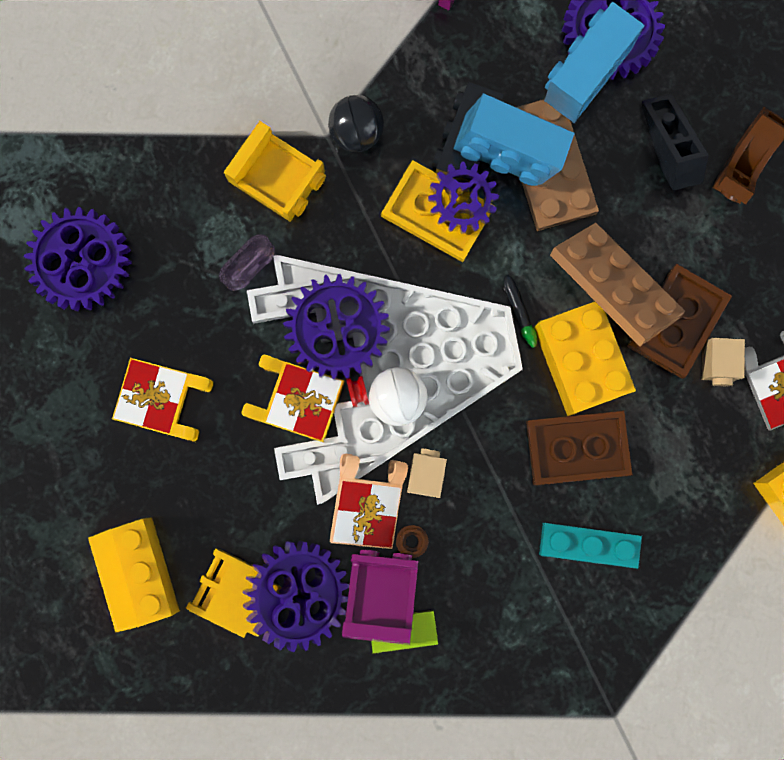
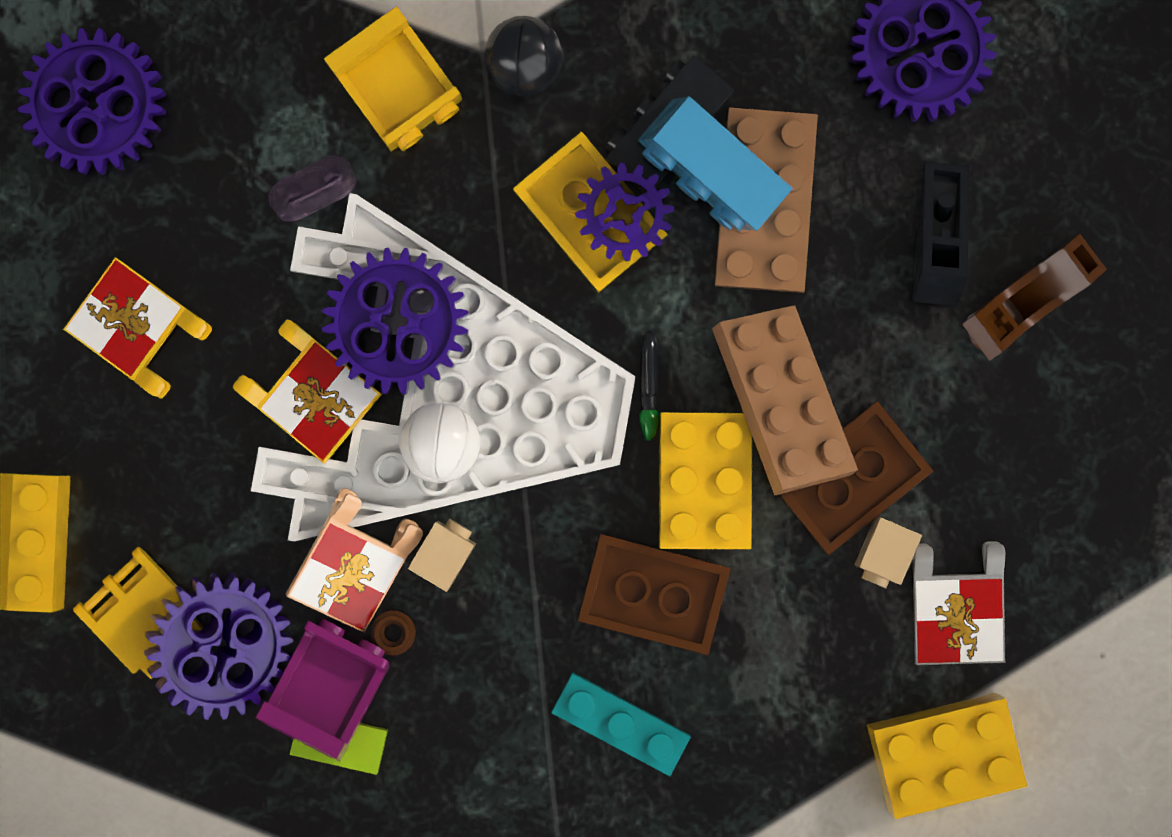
camera: 25 degrees right, 5 degrees up
(357, 391) = (391, 415): red bush -> none
(592, 61) = (861, 94): dark azure brick -> none

